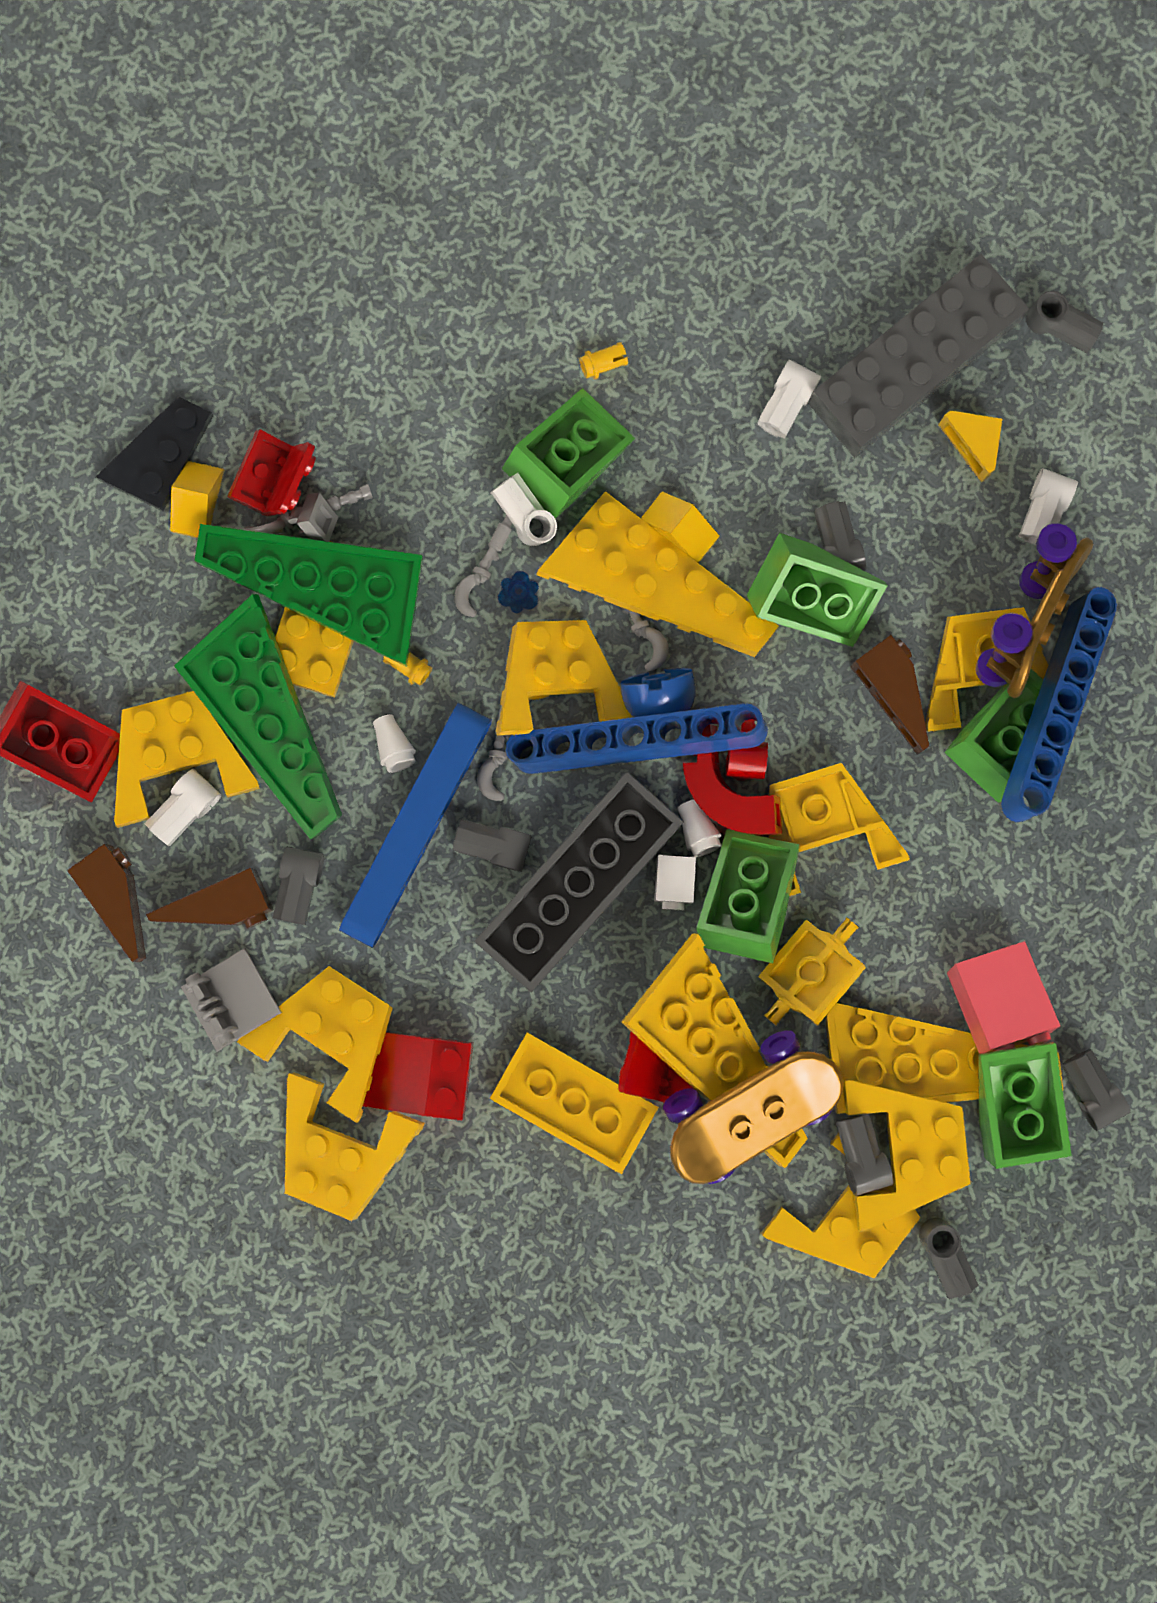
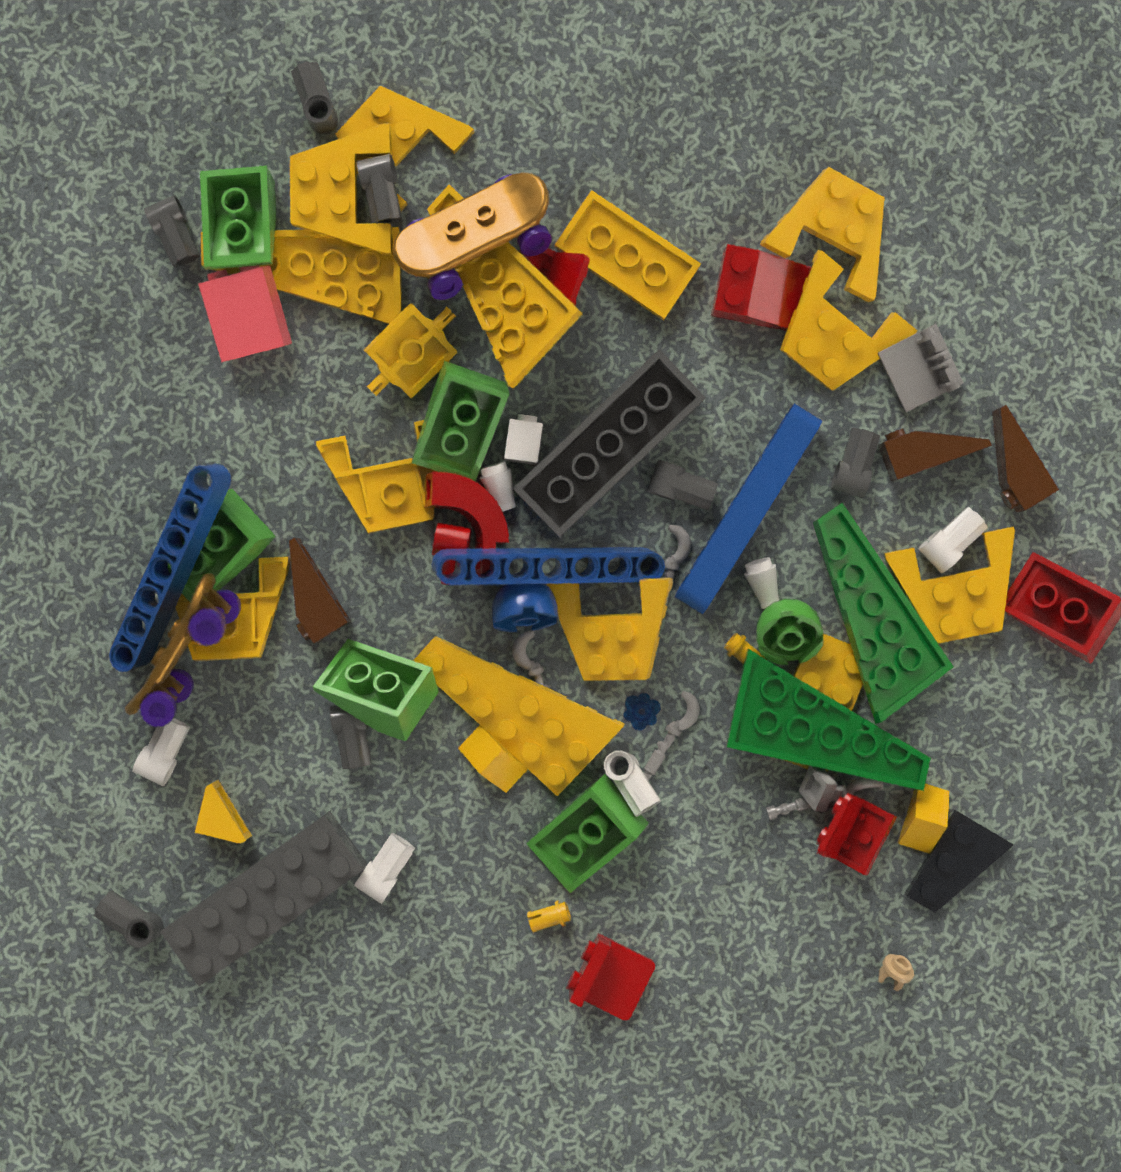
camera: 175 degrees left, 5 degrees up
(215, 332) = (897, 968): none -> tan plate
(361, 688) = (789, 632): none -> bright green cylinder
(531, 300) = (610, 977): none -> red bracket

